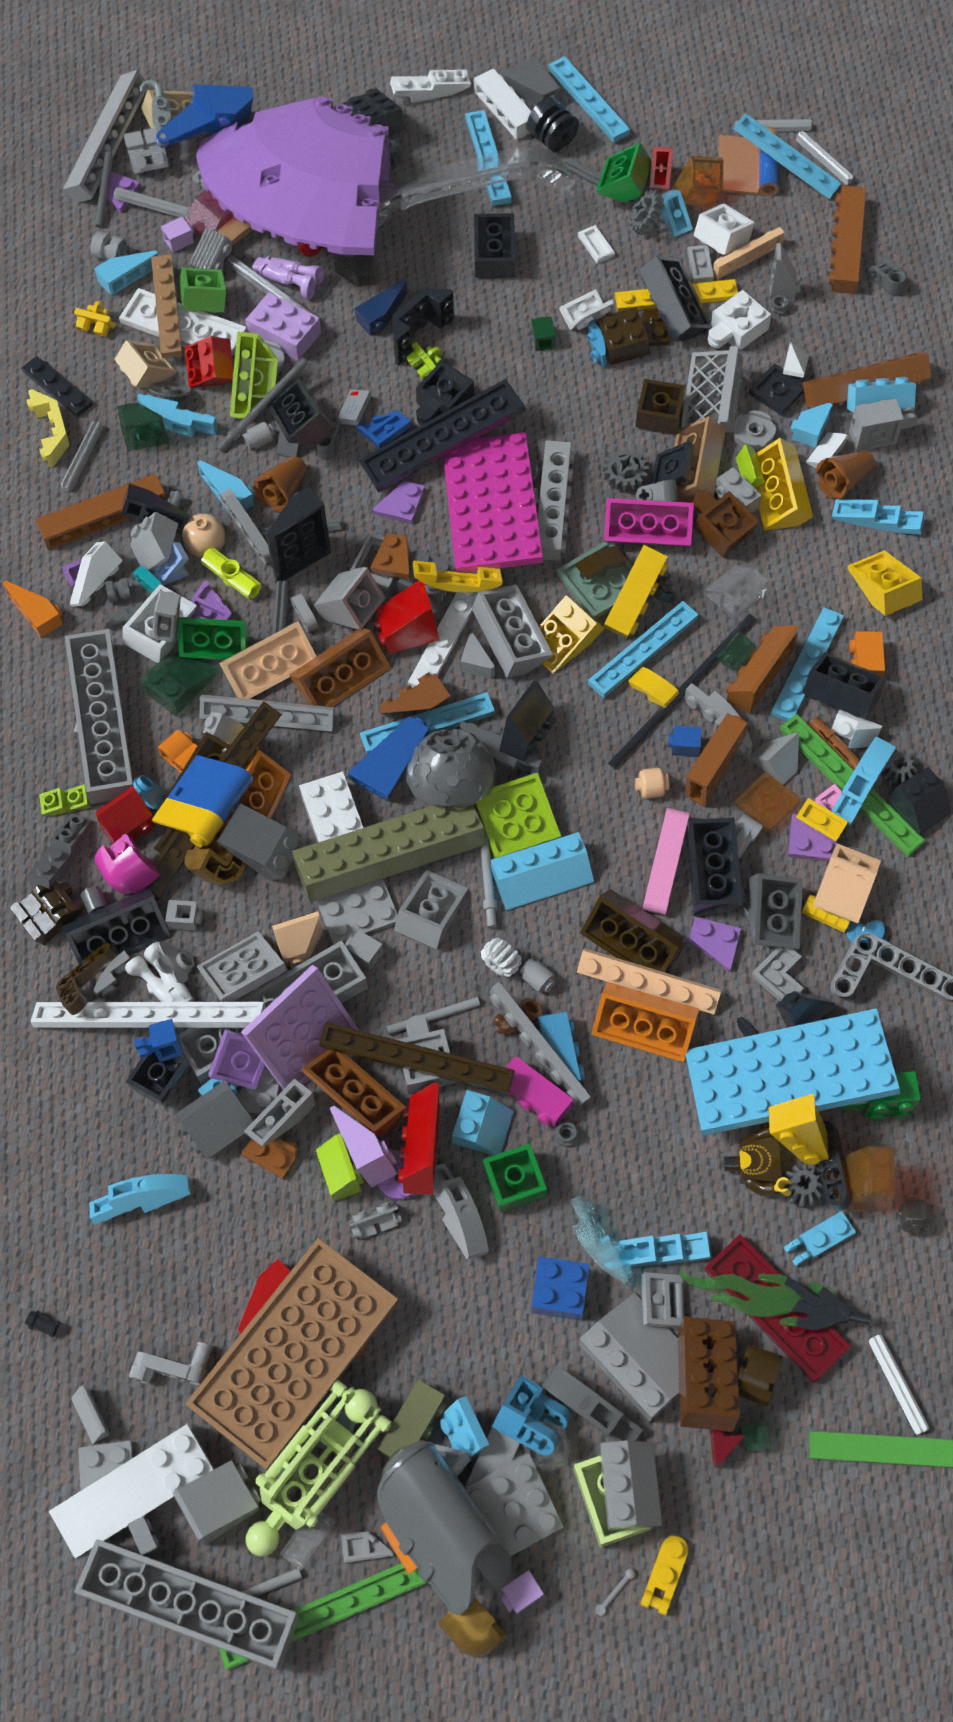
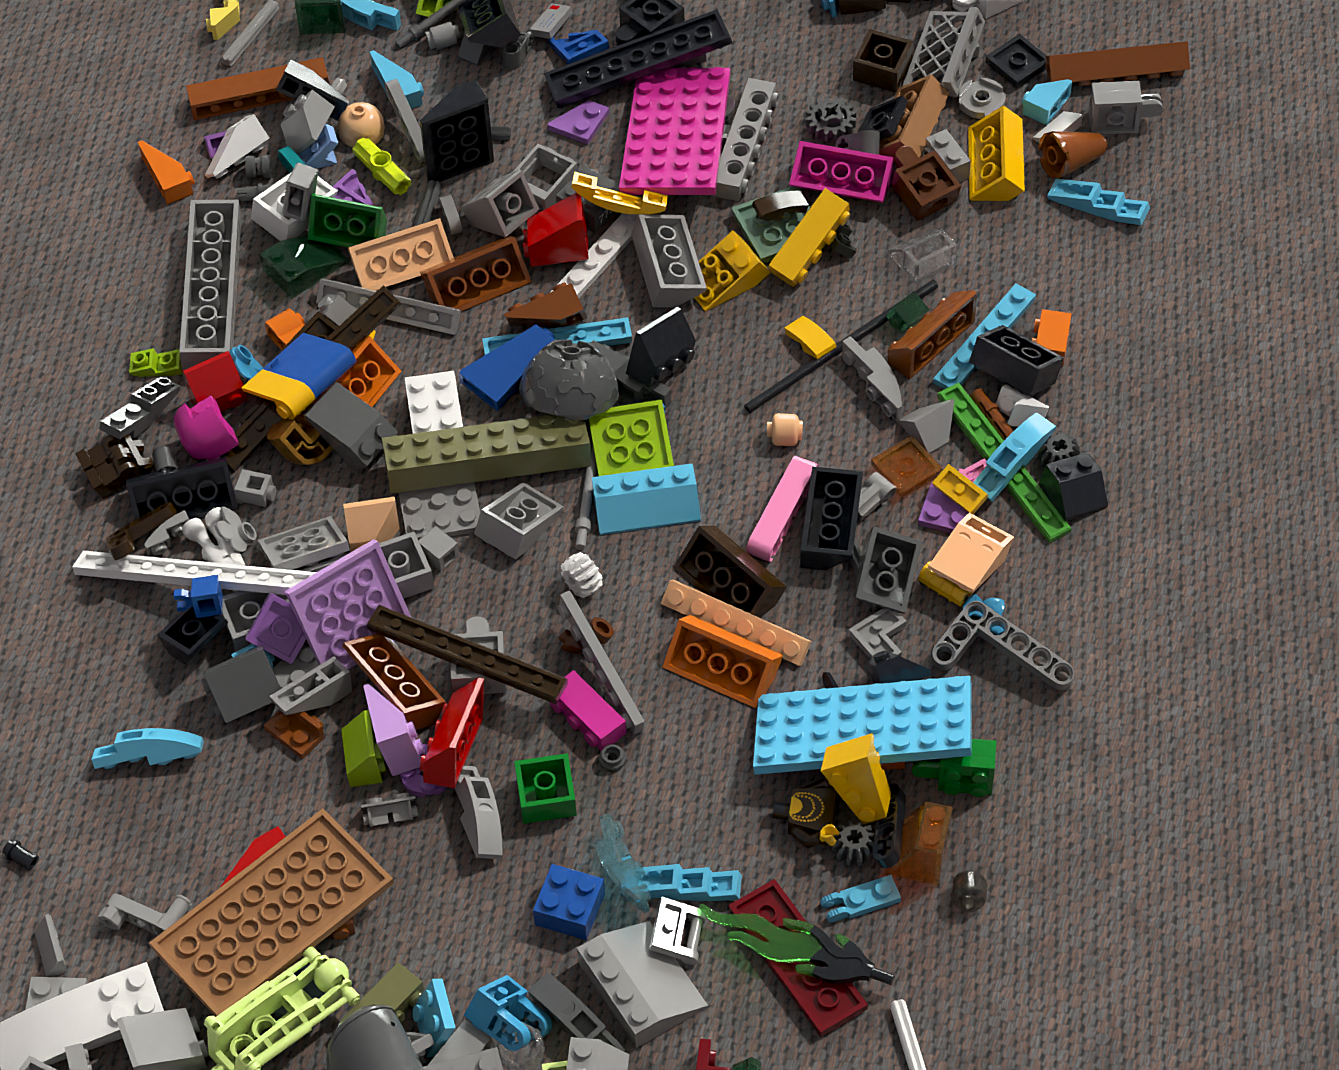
camera: 10 degrees right, 10 degrees down
(279, 483) = (443, 80): dark orange cone -> none
(393, 557) = (555, 169): dark orange wing -> none
(438, 1014) = (507, 623): light grey bar -> none
(475, 659) = (623, 285): light grey slope -> none
(482, 1124) = (523, 731): medium azure slope -> none
(537, 976) = (617, 600): light grey brick -> none
(557, 1032) = (625, 657): dark azure slope -> none
(642, 649) = (807, 298): medium azure plate -> none
(685, 741) = (831, 394): blue brick -> none
(708, 1374) = (704, 1001): reddish brown brick -> none
(715, 759) = (856, 413): dark orange slope -> none
(716, 940) = (819, 594): medium lavender wing -> none
(749, 466) = (968, 133): lime slope -> none
(758, 1375) = (760, 1014): dark brown brick -> none
(795, 361) = (1043, 34): white slope -> none
(882, 389) = (1151, 77): medium azure brick -> none
(887, 582) = (1091, 268): yellow slope -> none

